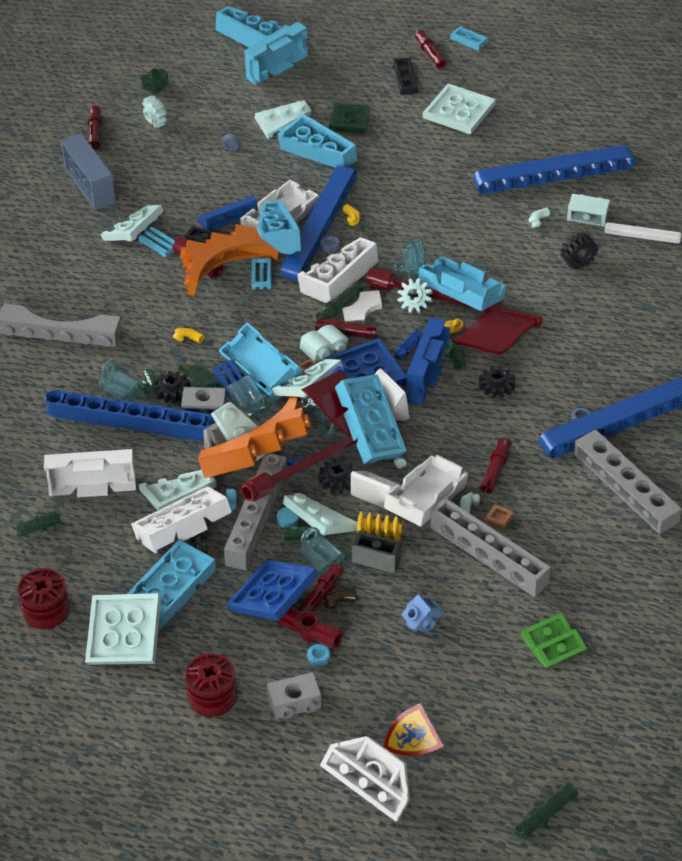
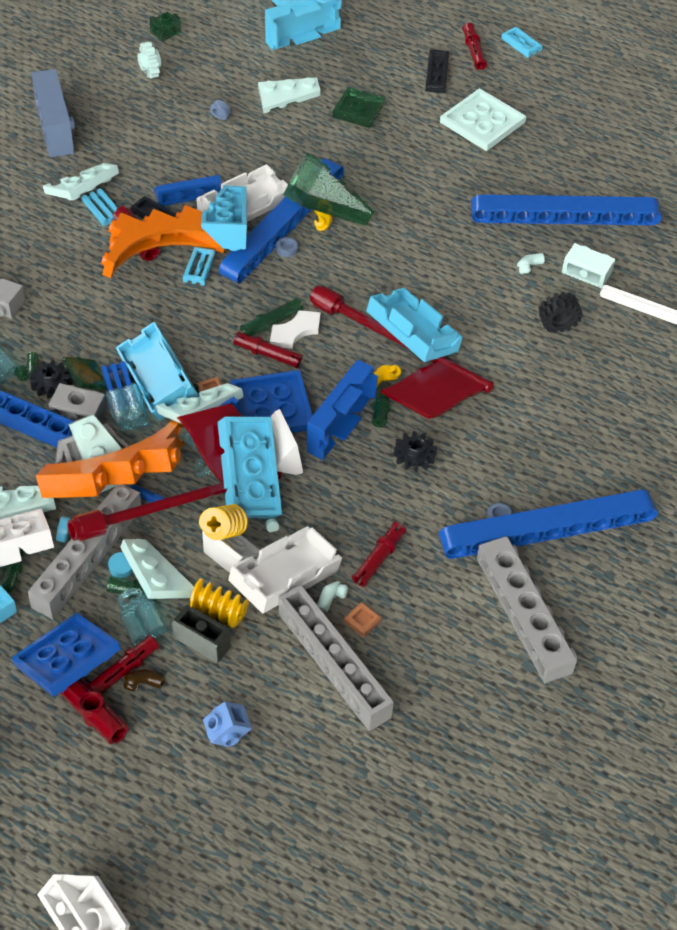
camera: 10 degrees right, 5 degrees up
(94, 123) = (84, 59): dark red pin -> none
(189, 333) = (95, 319): yellow arm -> none
(282, 695) = (31, 785): light grey brick -> none
(317, 143) = (311, 128): medium azure wedge -> none
(319, 655) = (93, 747): medium azure tile -> none
(323, 343) = (235, 362): light aqua brick -> none
(336, 476) = (187, 527): black gear -> none
(339, 271) = (283, 281): white wedge -> none
(348, 191) = (319, 190): none -> clear green wedge
(359, 462) = (223, 522): none -> yellow piece
(408, 344) = (328, 385): blue axle -> none
(412, 289) = (352, 336): light aqua gear -> none
(412, 734) = (161, 879): shield -> none
(413, 257) = (369, 281): clear light blue piece -> none
(553, 640) = (372, 794): bright green slope -> none

